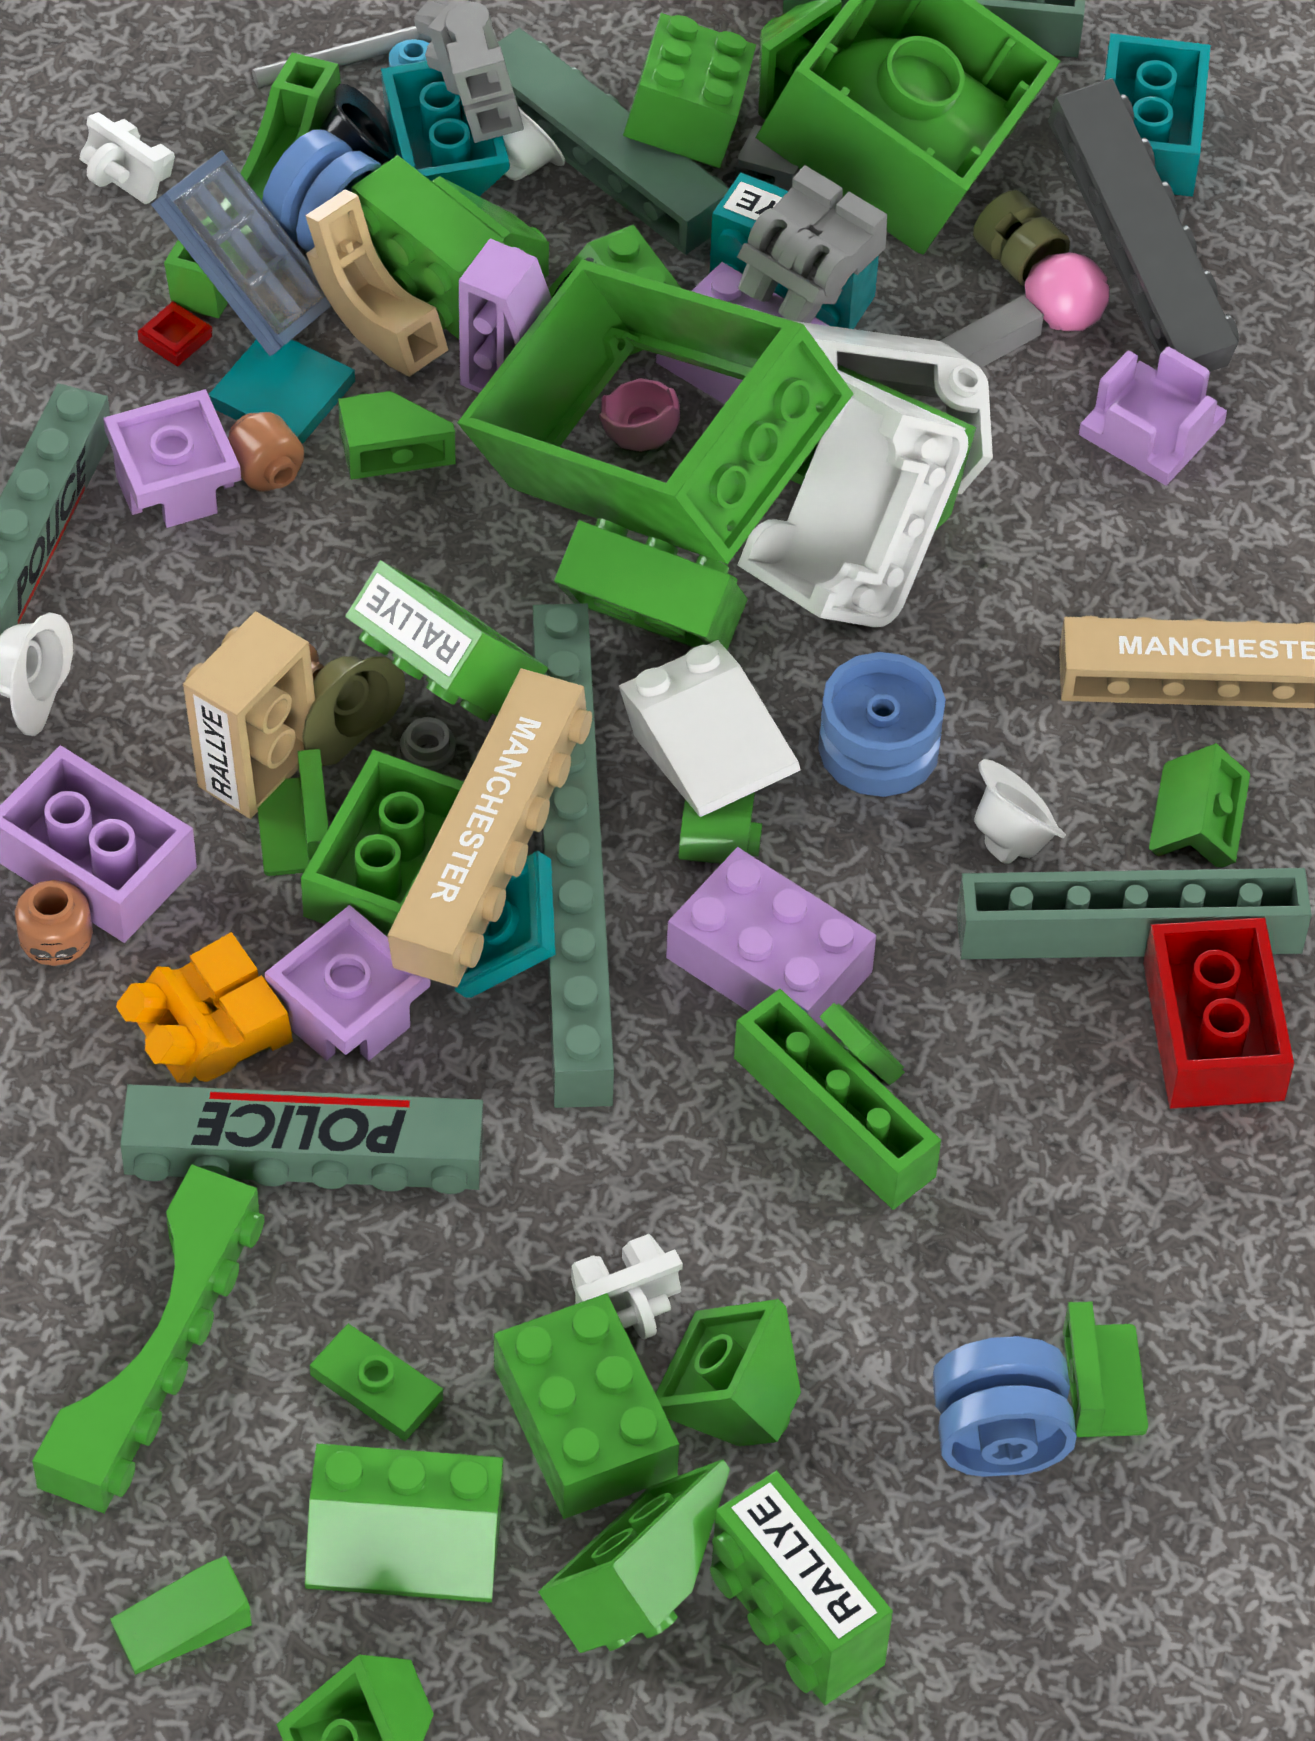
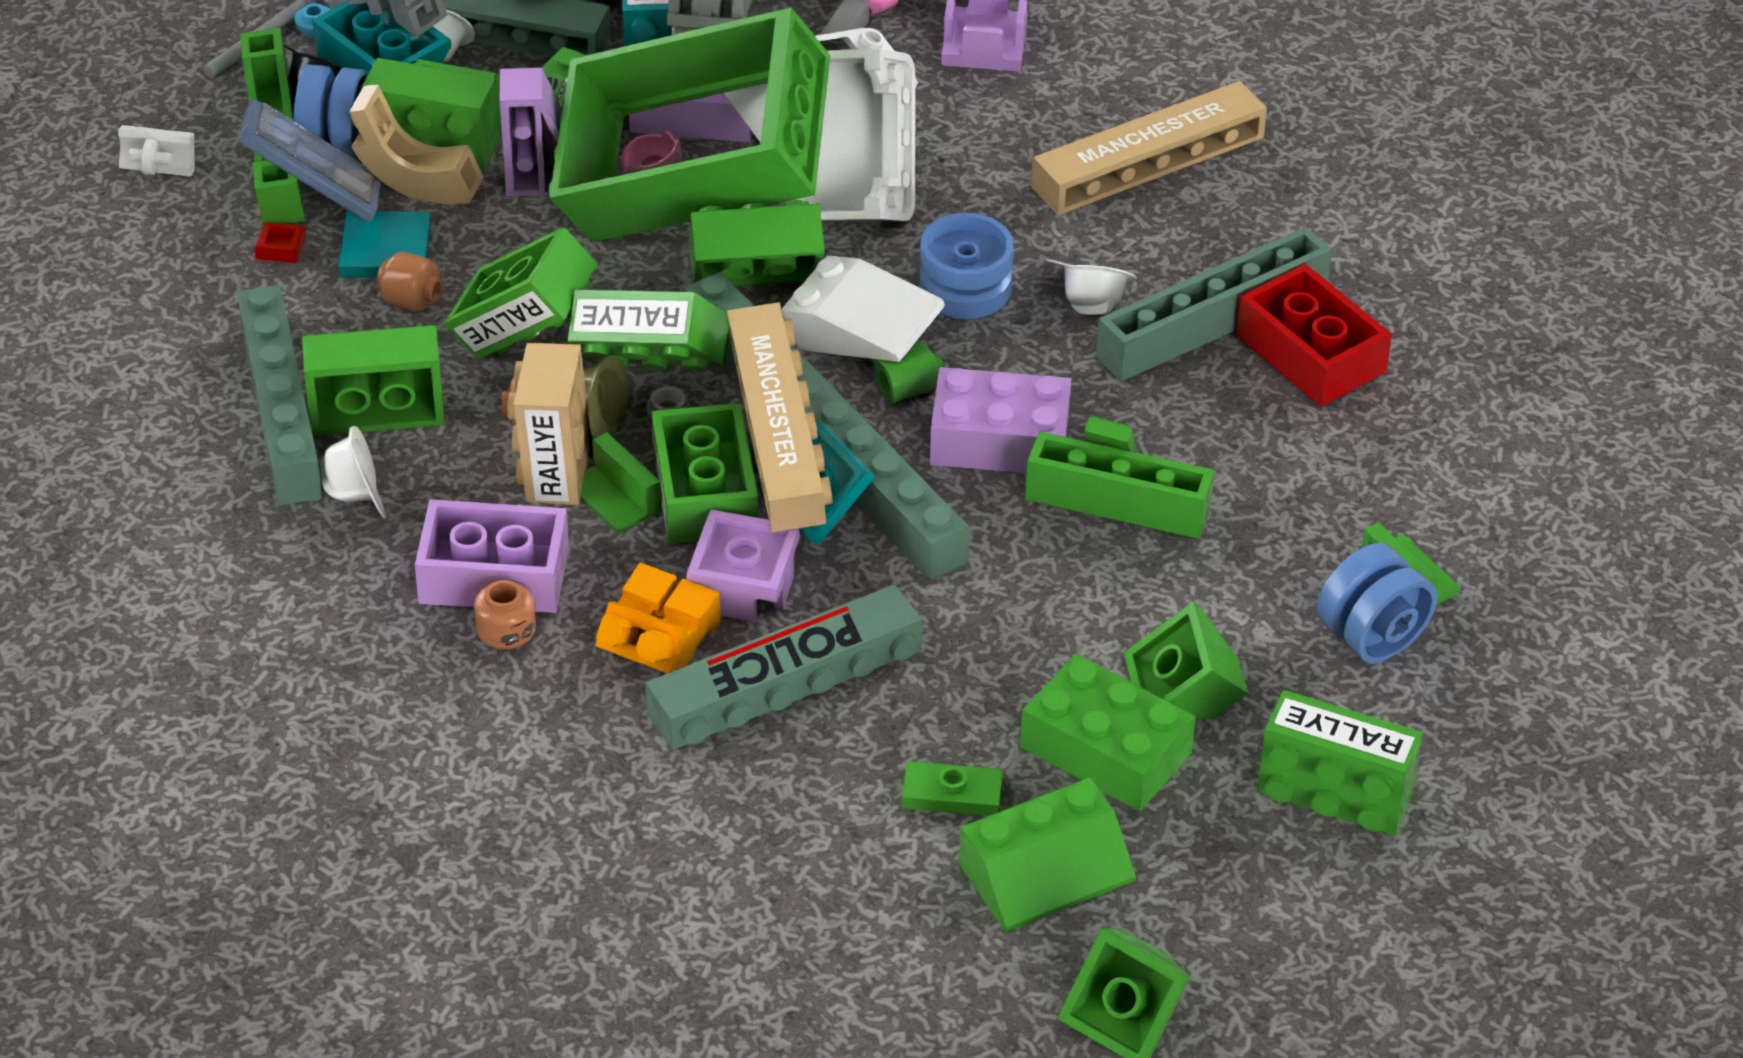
camera: 30 degrees left, 10 degrees down
(96, 1438) = (796, 903): bright green arch -> none
(122, 562) = (373, 380): none -> bright green brick
(172, 457) = (350, 299): lavender panel -> none
(183, 1616) = (943, 982): bright green slope -> none
(343, 530) = (521, 294): none -> bright green brick
(392, 435) = (489, 234): bright green slope -> none
(636, 1291) = (1076, 638): white hips -> none
(639, 1563) = (1227, 796): bright green slope -> none
(1201, 805) = (1195, 232): bright green panel -> none

